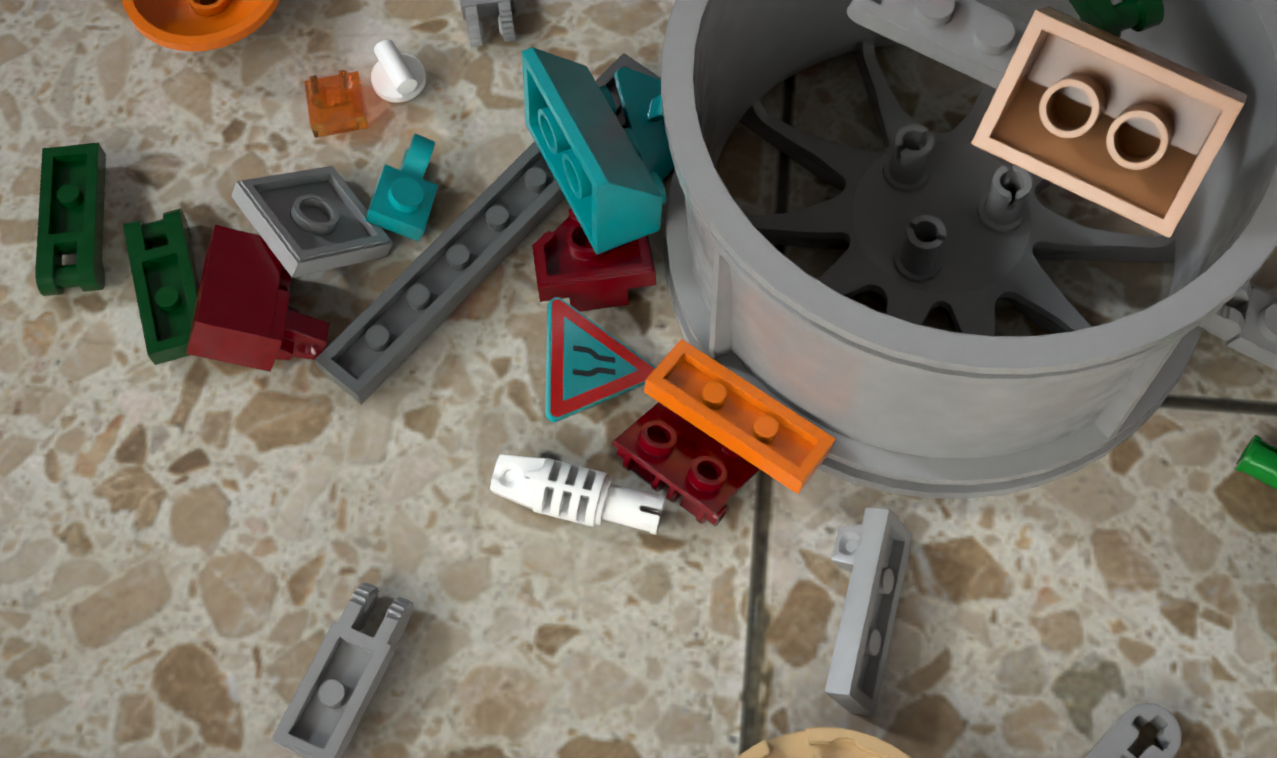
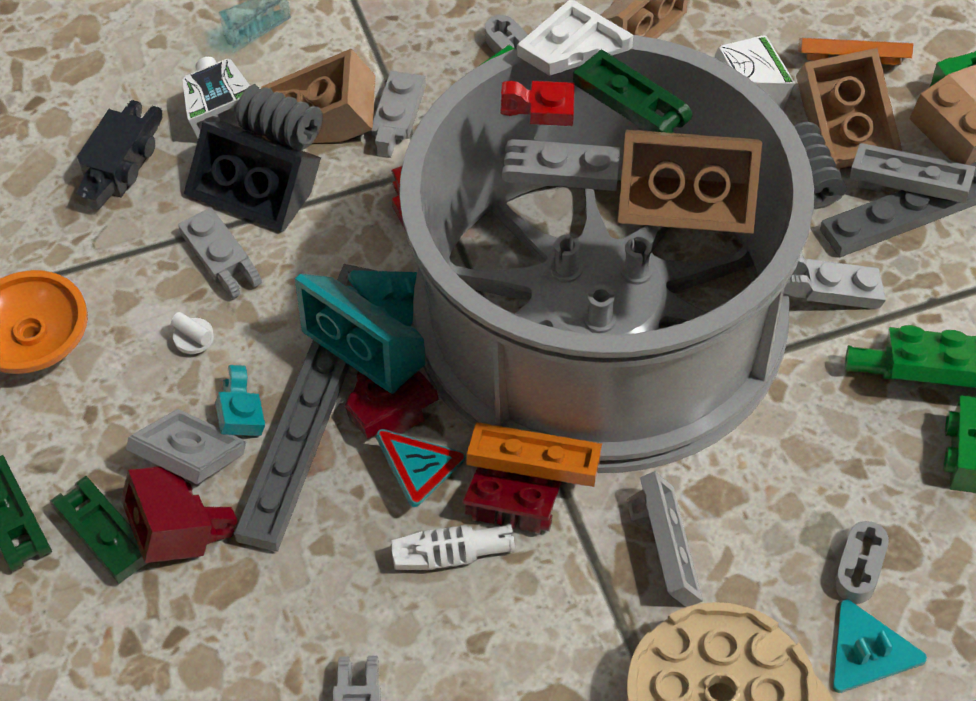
camera: 25 degrees left, 10 degrees down
(336, 104) = (158, 369): clear orange tile -> none

